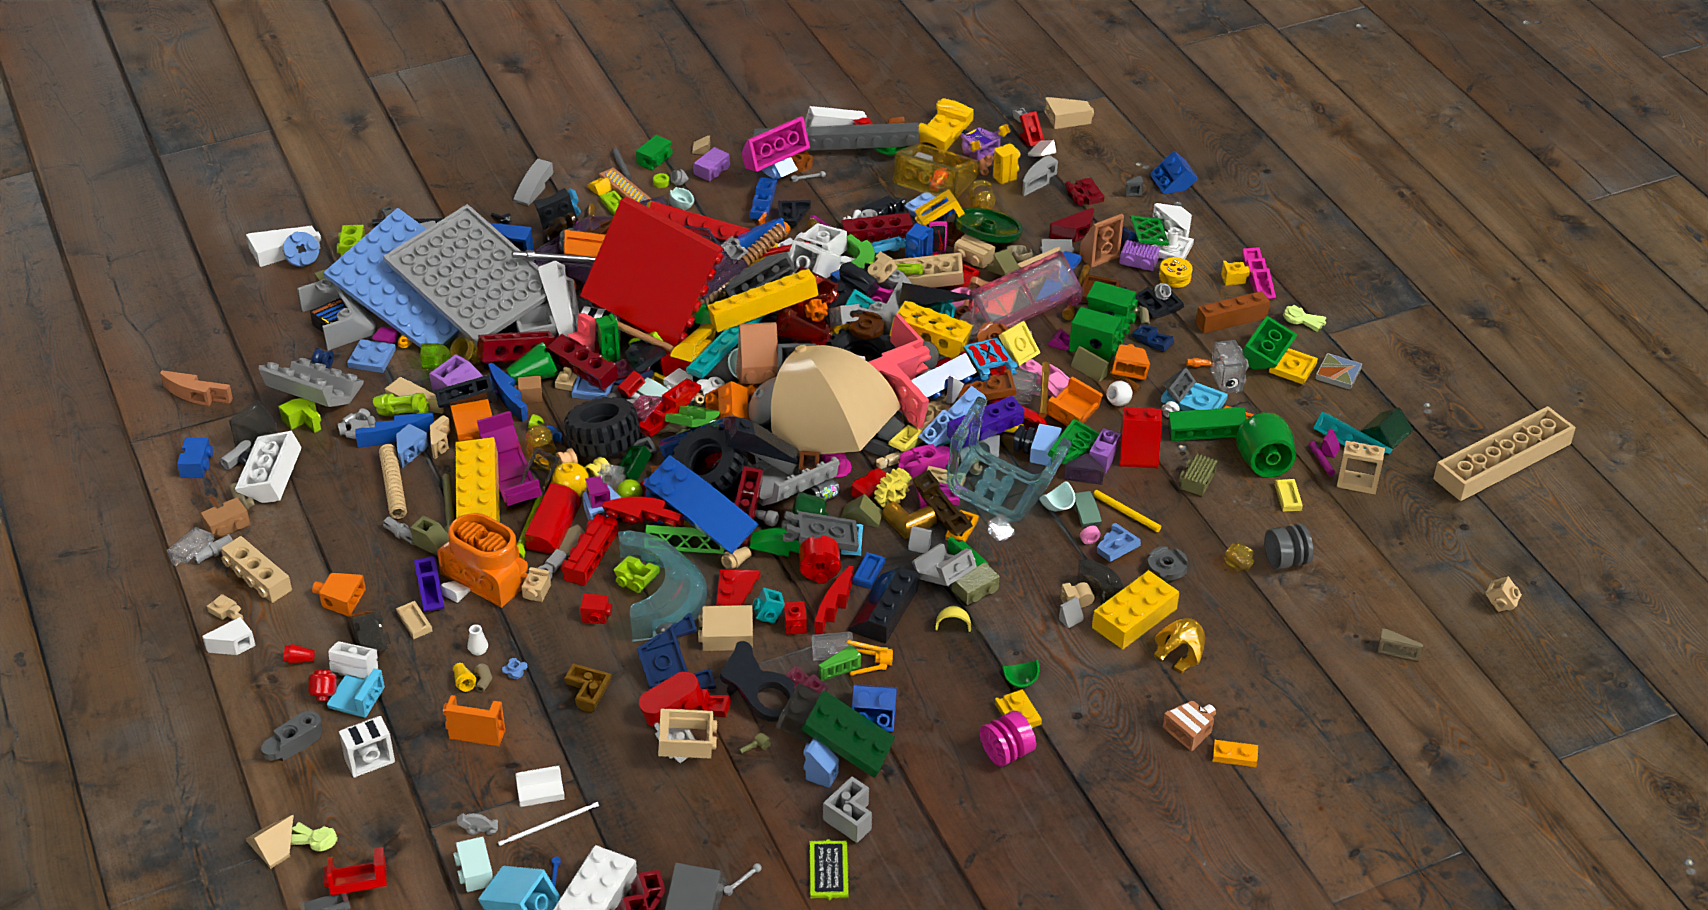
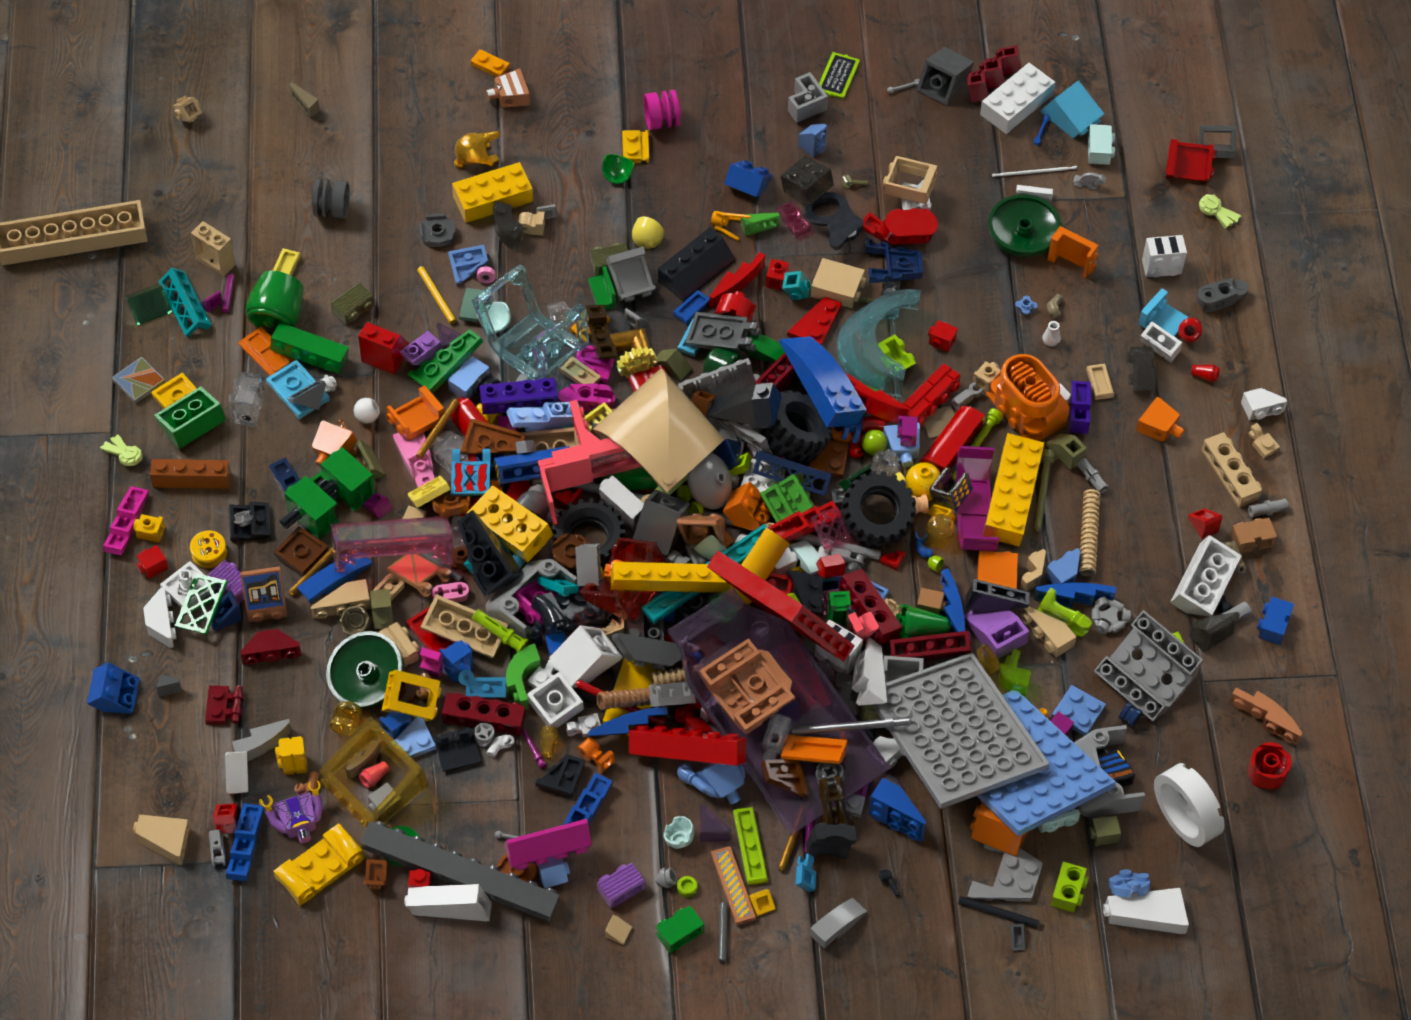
camera: 160 degrees left, 15 degrees up
(188, 349) = (1269, 766): none -> red brick
(189, 546) = (1289, 506): clear bracket -> none
(257, 283) = (1188, 805): none -> white brick
(273, 841) = (1252, 216): tan slope -> none
(275, 516) = (1205, 522): none -> red slope
(464, 678) = (1071, 307): yellow cone -> none
(539, 738) = (1023, 225): none -> dark green dish
(592, 685) = (967, 266): pearl gold brick -> none
(645, 337) = (806, 599): medium nougat bar -> none
(827, 645) = (756, 244): clear slope -> none
(848, 733) = (784, 143): dark green plate -> none
(882, 267) = (522, 606): tan leg -> none
(1005, 116) = (244, 842): none -> blue slope
(1064, 244) = (306, 631): light grey piece -> none
(1143, 314) = (276, 507): dark tan arm -> none
(1197, 362) = (263, 432): orange piece -> none
(1213, 252) = (151, 562): none -> red brick
(1239, 556) = (374, 213): clear yellow head -> none

